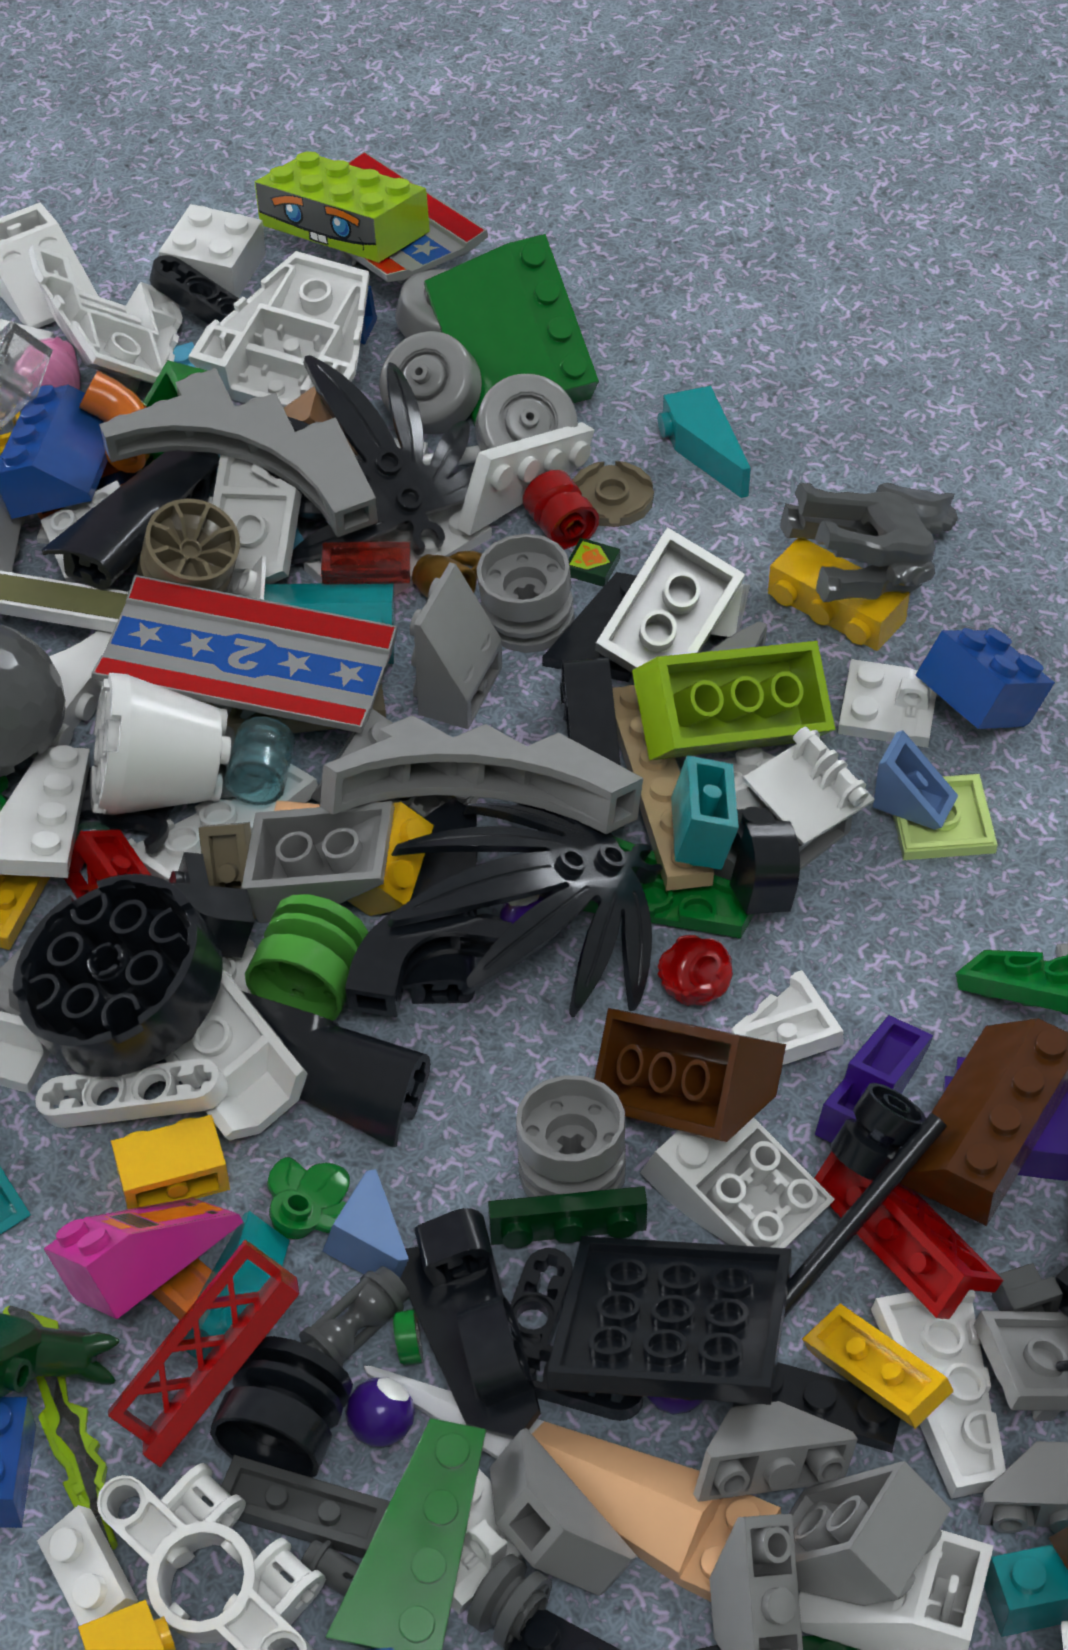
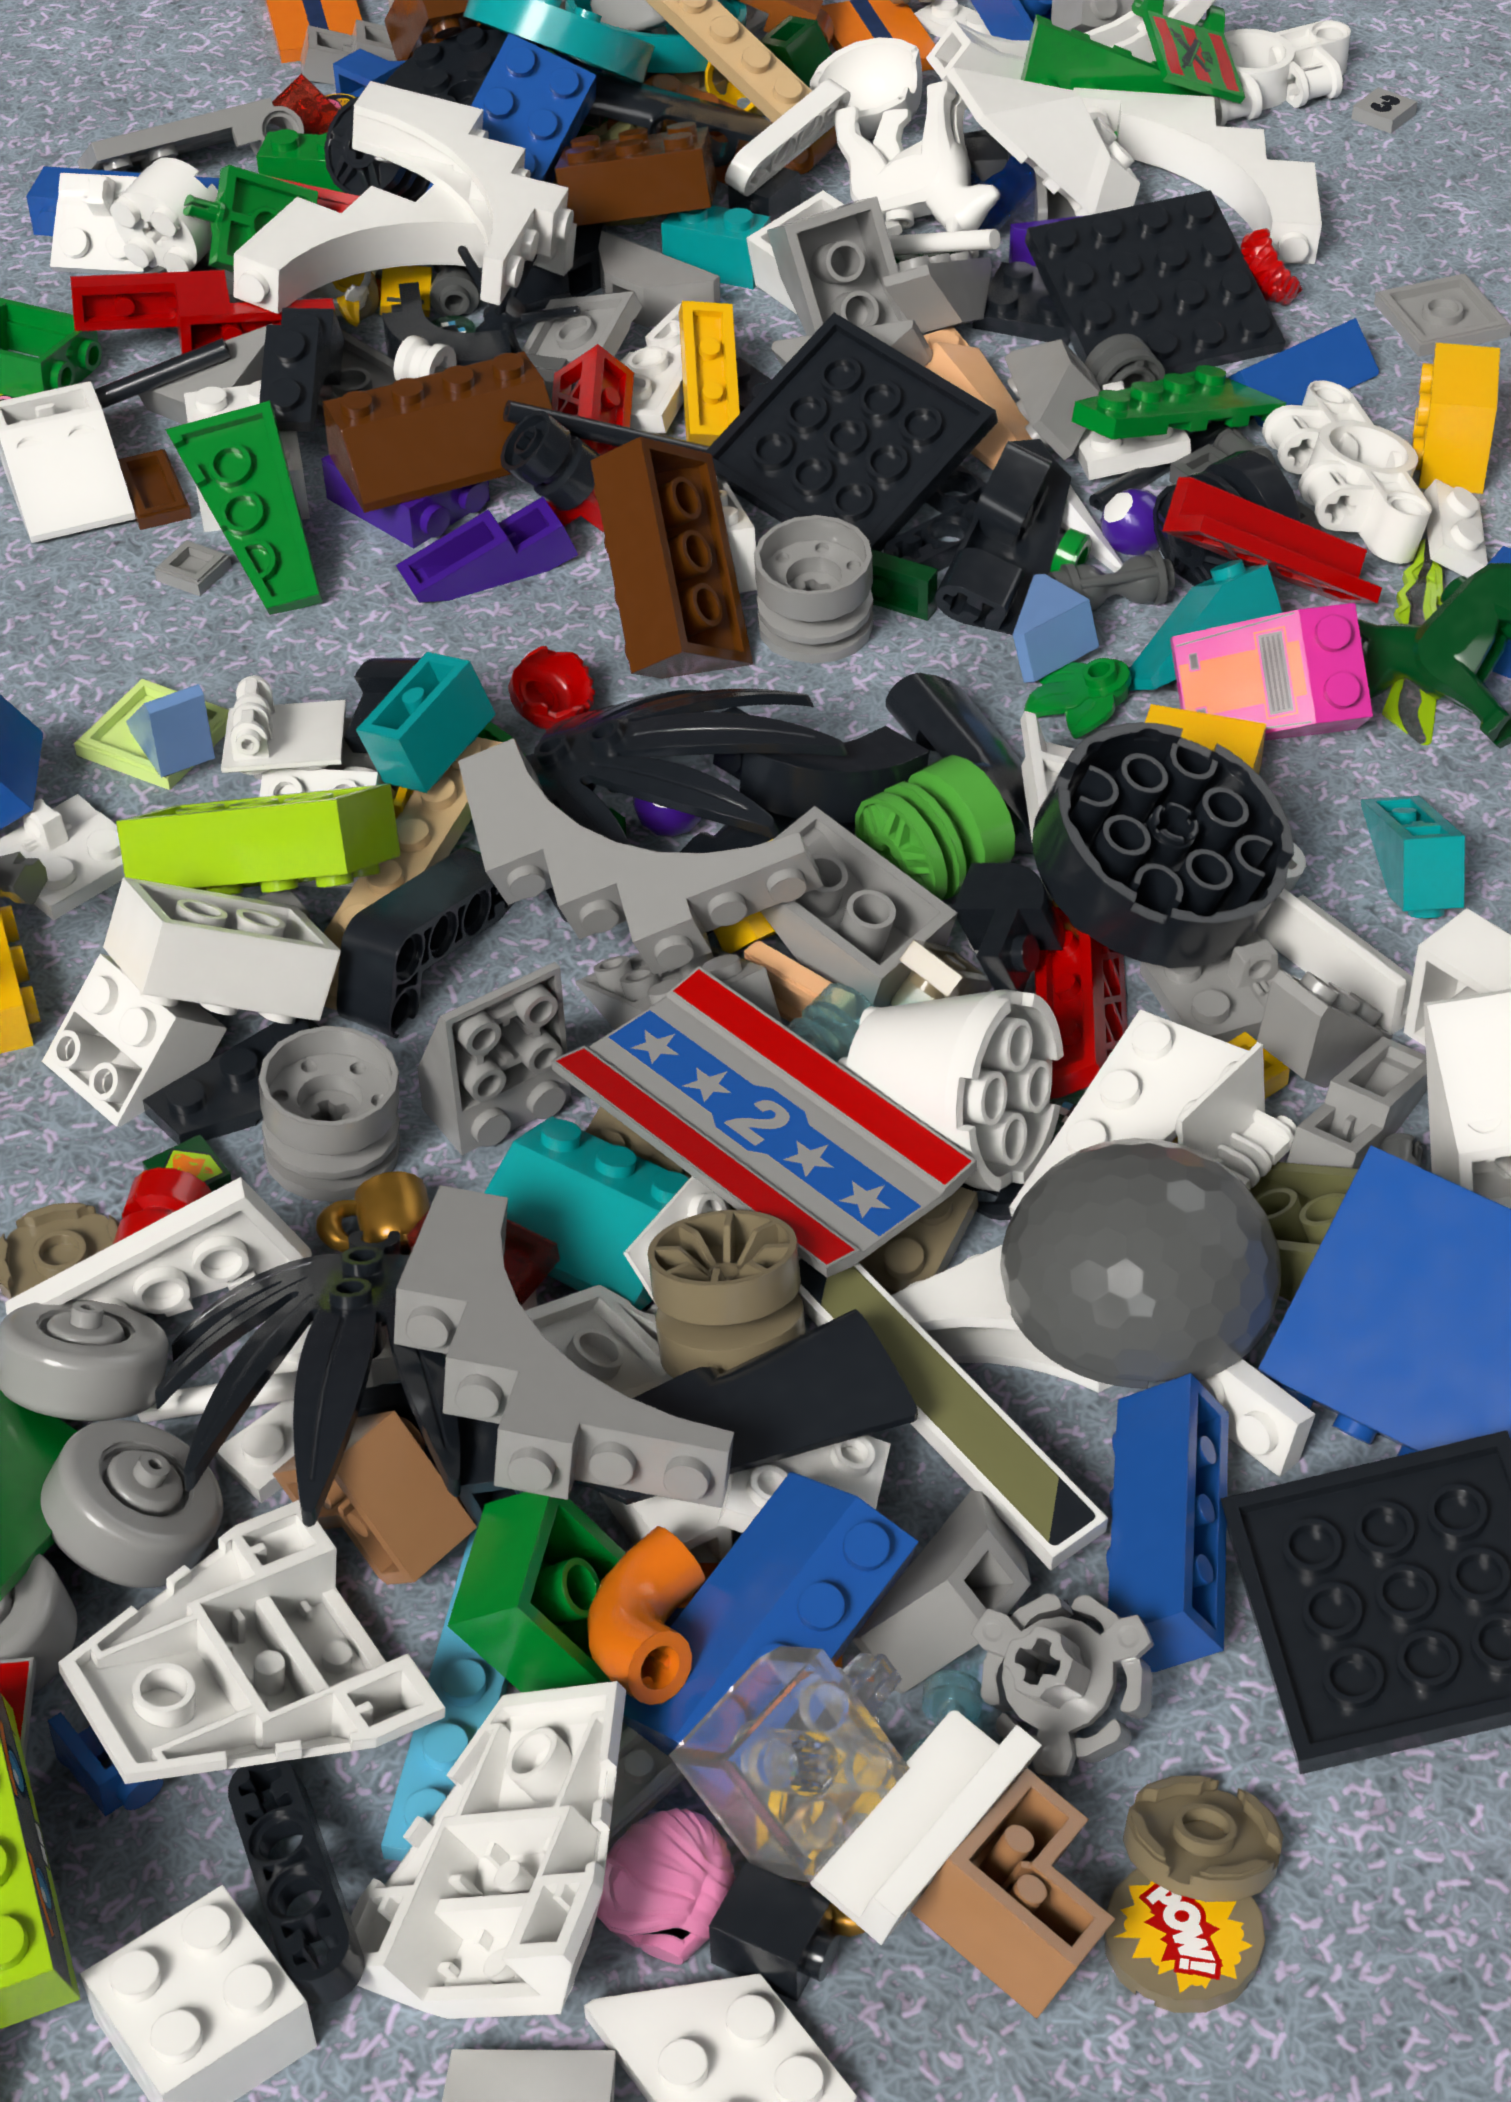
camera: 145 degrees left, 5 degrees down
(794, 1019) = (513, 621): white wing -> none

